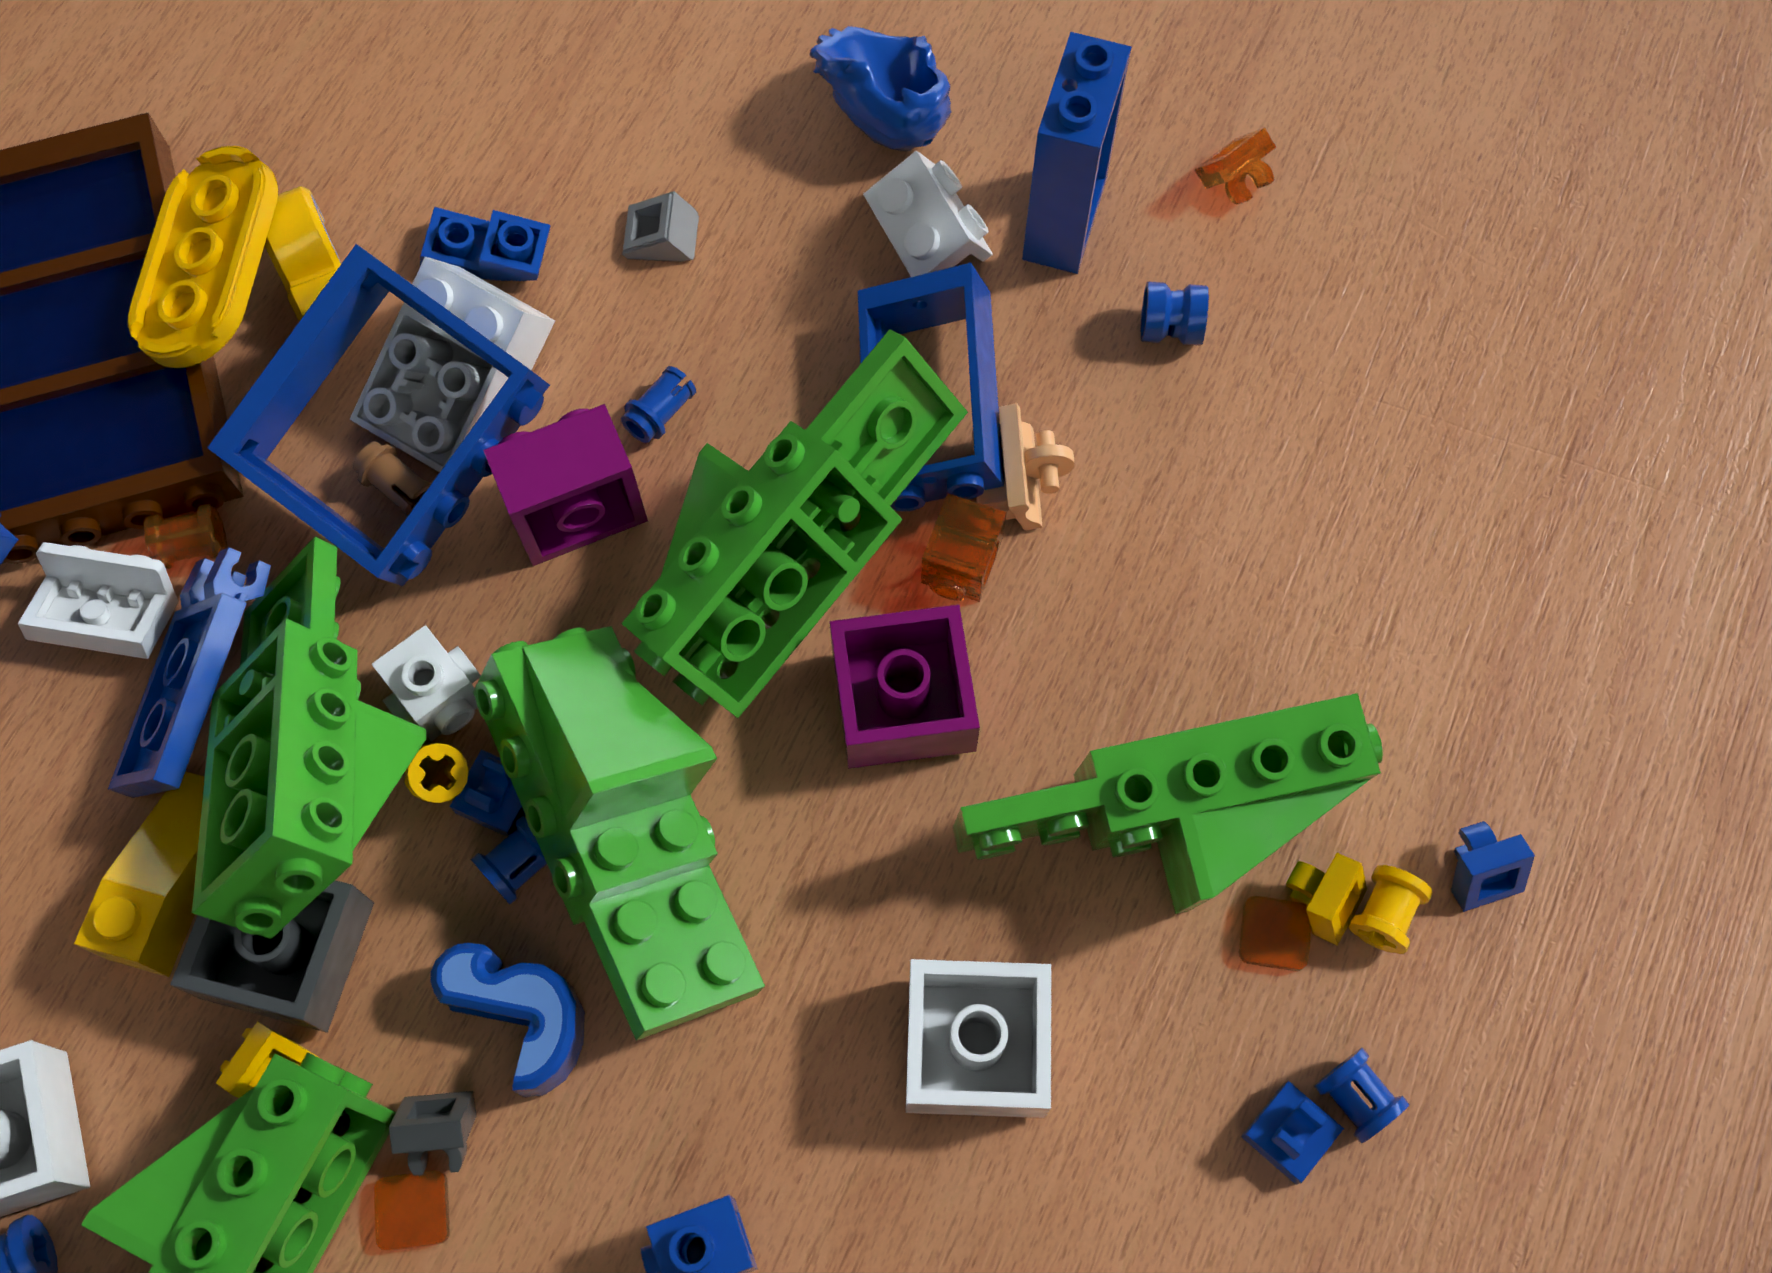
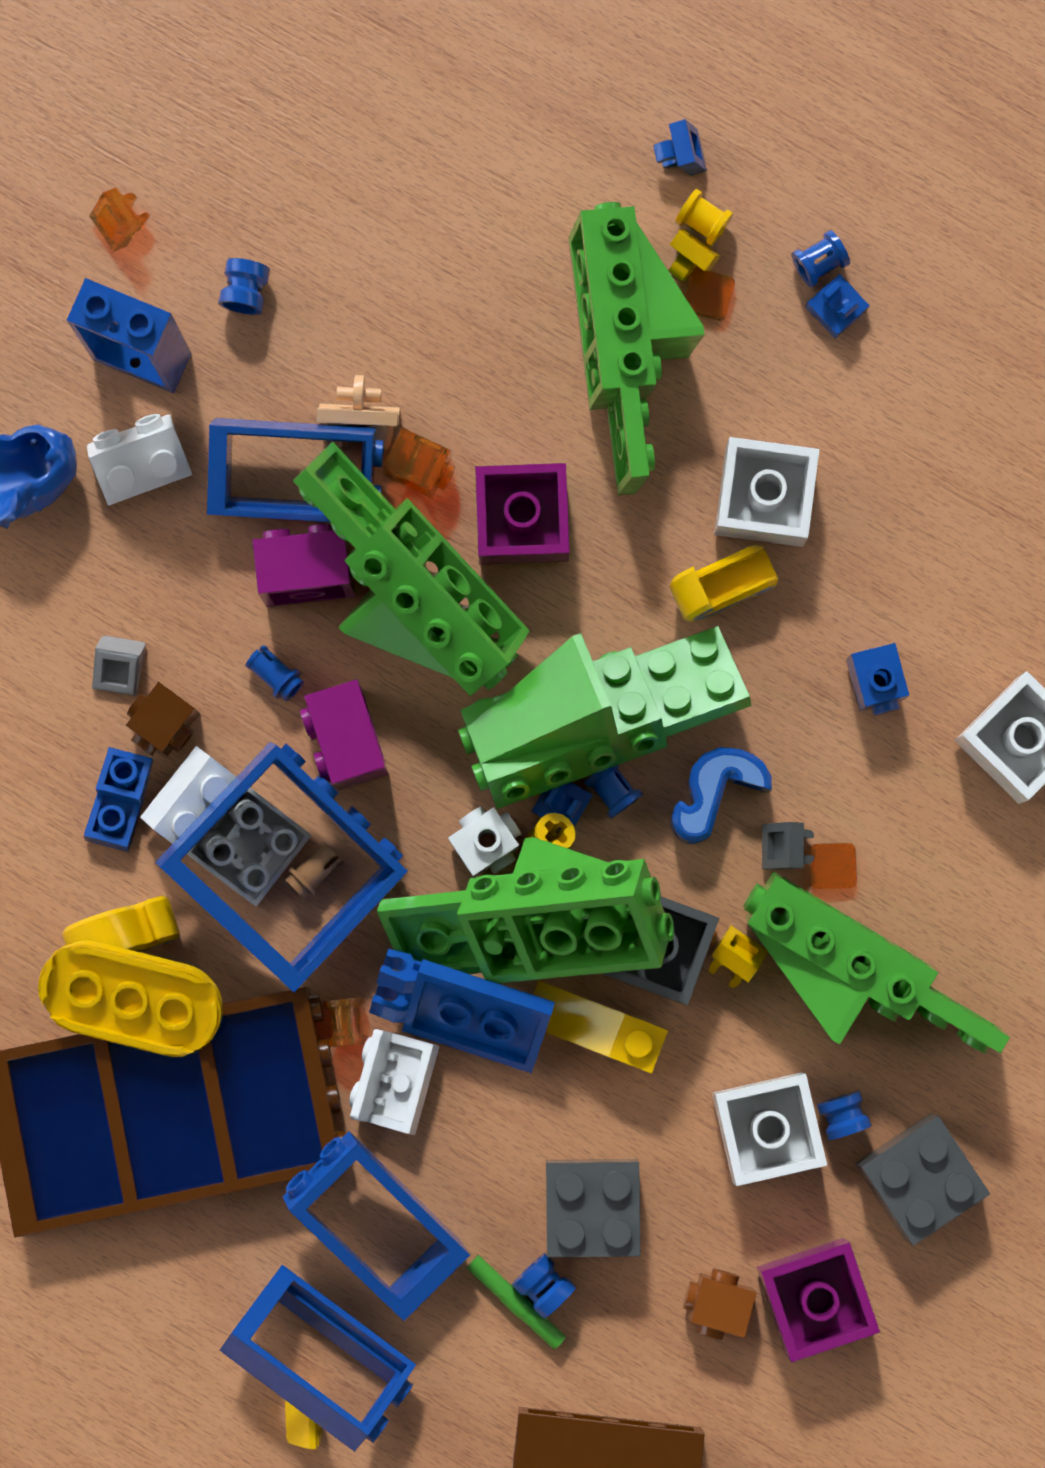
camera: 85 degrees left, 15 degrees up
(586, 277) = (161, 721): none -> reddish brown brick
(789, 376) = (302, 566): none -> magenta brick
(830, 987) = (723, 583): none -> yellow animal

